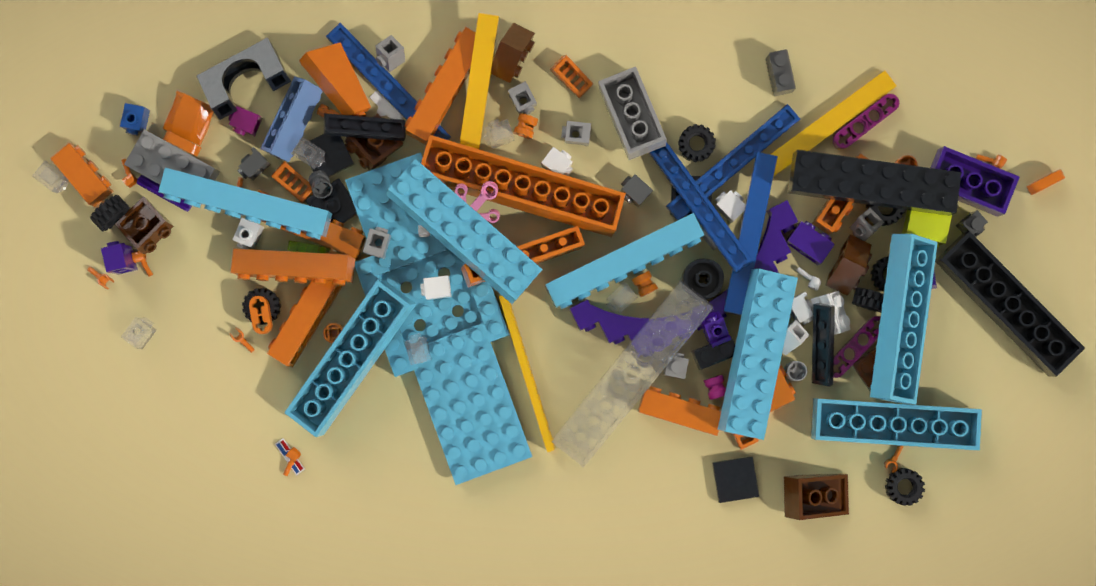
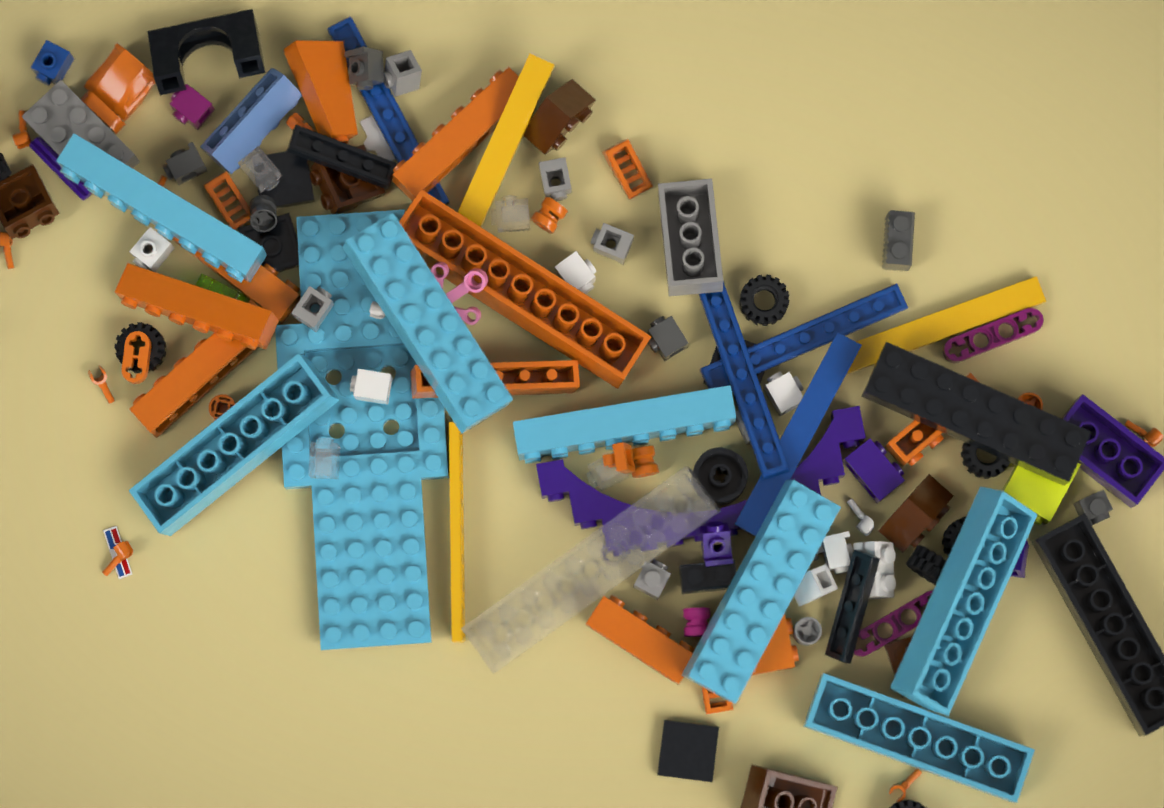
camera: 20 degrees right, 5 degrees down
(362, 57) = (365, 67): none -> dark grey brick
(630, 287) = (621, 458): none -> orange tile
(862, 229) = (947, 472): light grey brick -> none

